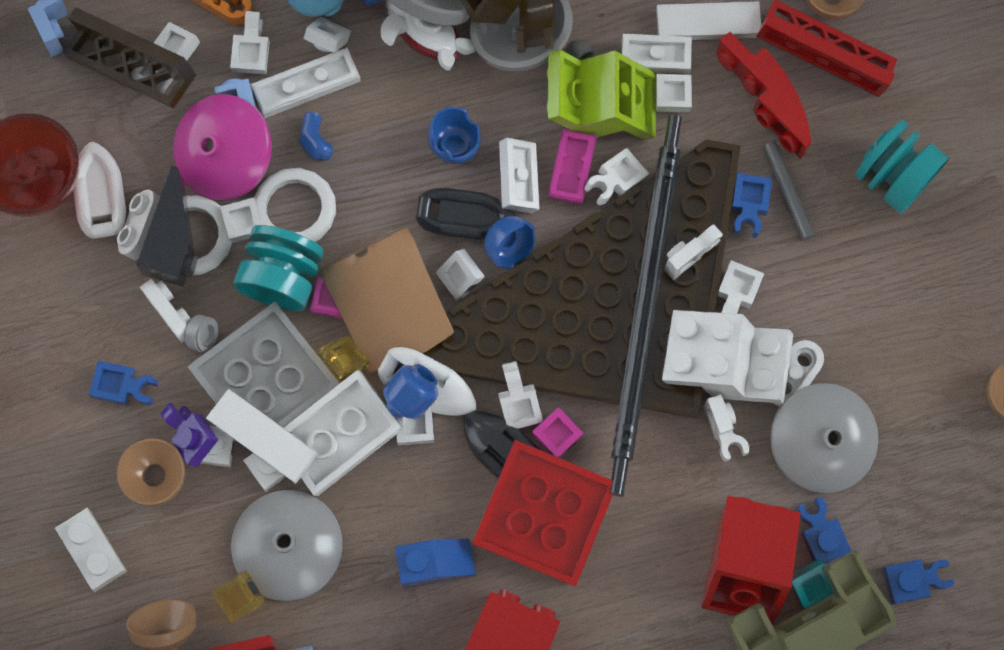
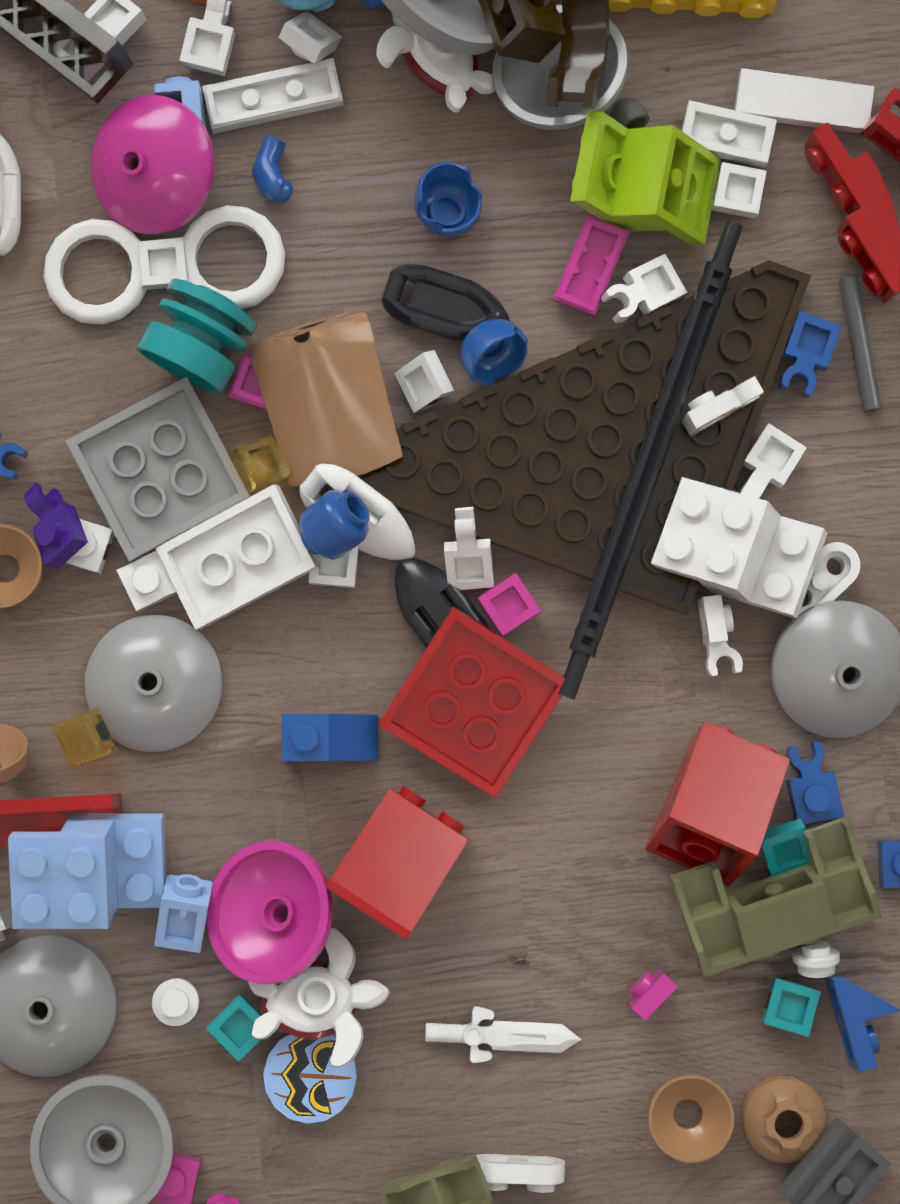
camera: 10 degrees right, 10 degrees up
(136, 227) = (35, 248): white plate -> none
(159, 297) = (44, 347): white plate -> none
(169, 241) = (67, 275): black slope -> none
(201, 333) = (89, 401): light grey tile -> none
(262, 436) = (142, 545): white tile -> none
(519, 175) = (521, 266): white plate -> none

